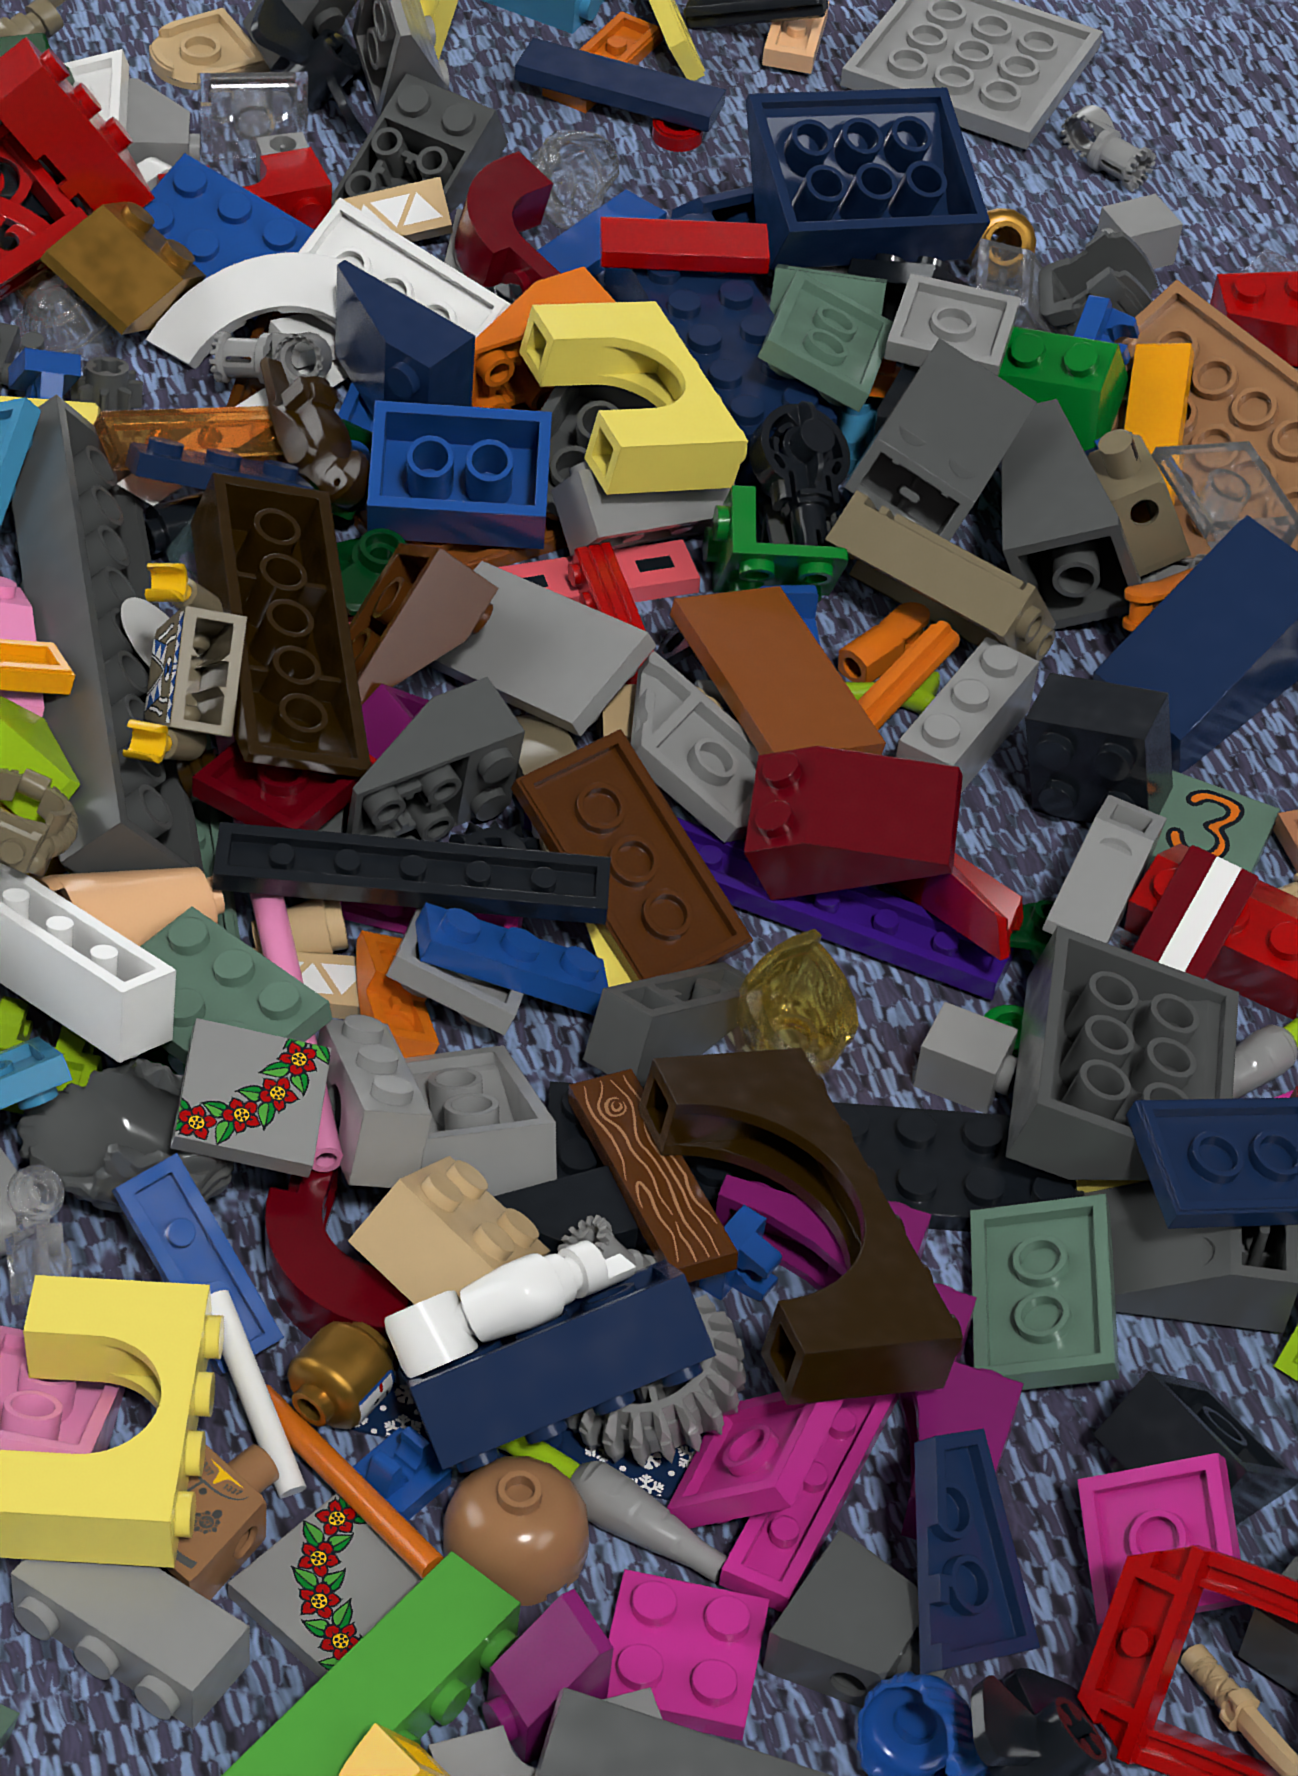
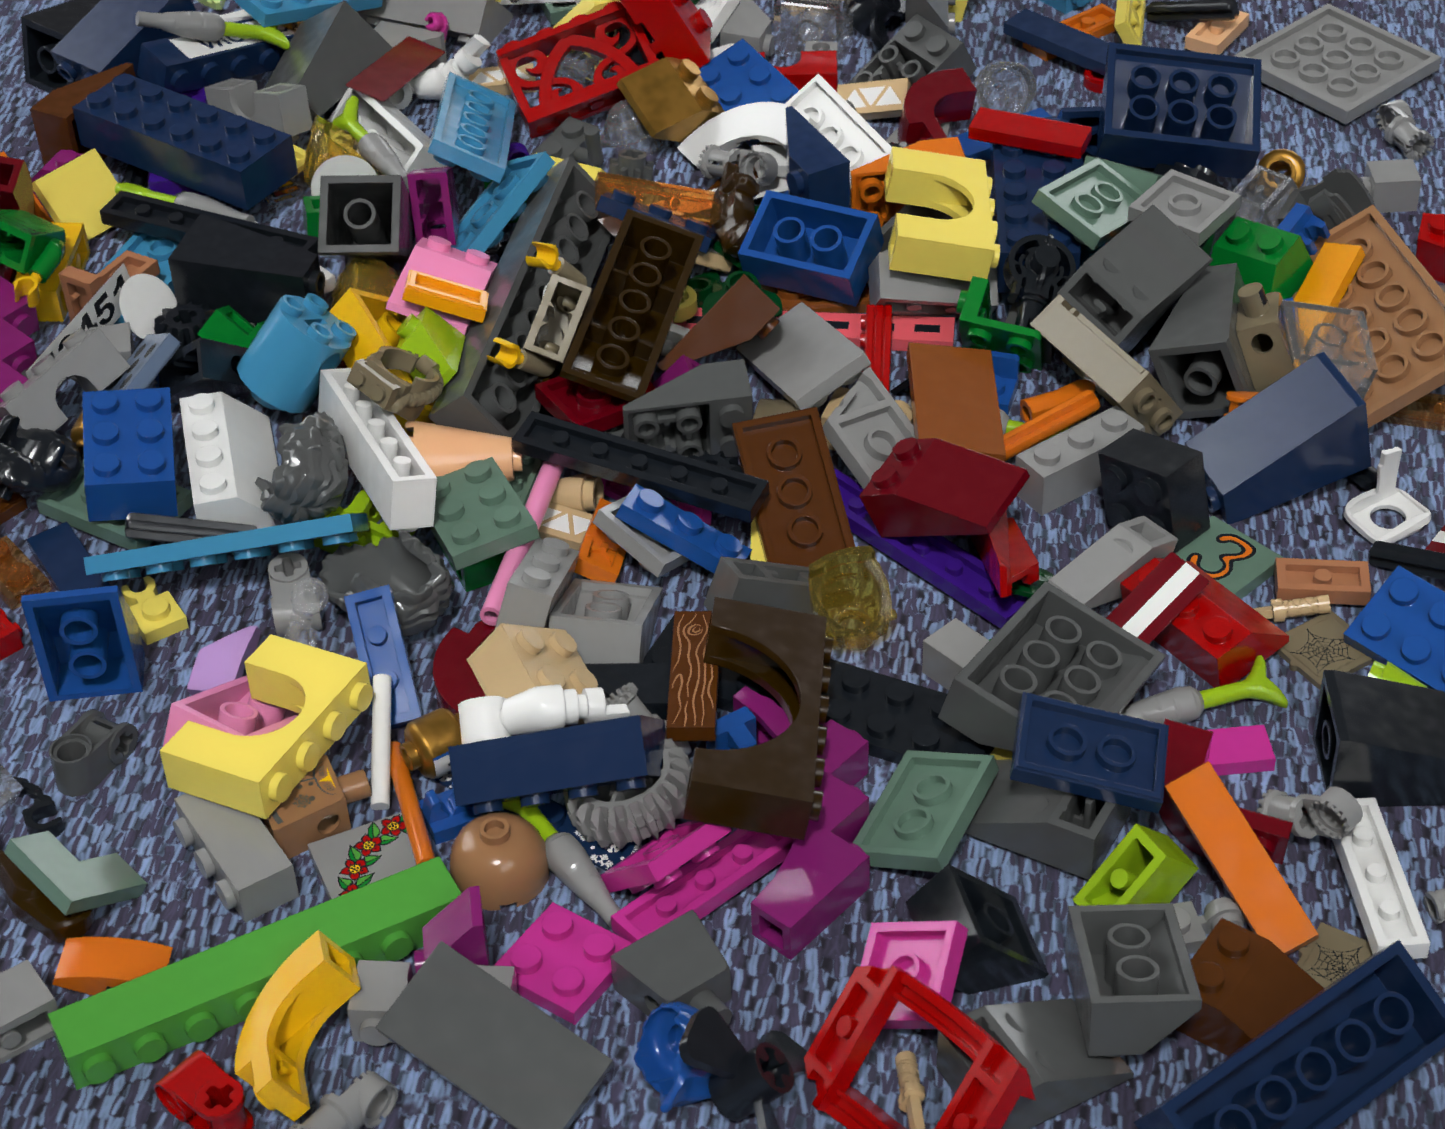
camera: 30 degrees right, 5 degrees down
(44, 373) = (592, 151): blue tile -> none
(251, 1098) = (454, 566): light grey tile -> none
(966, 1558) = (760, 946): dark blue wing -> none

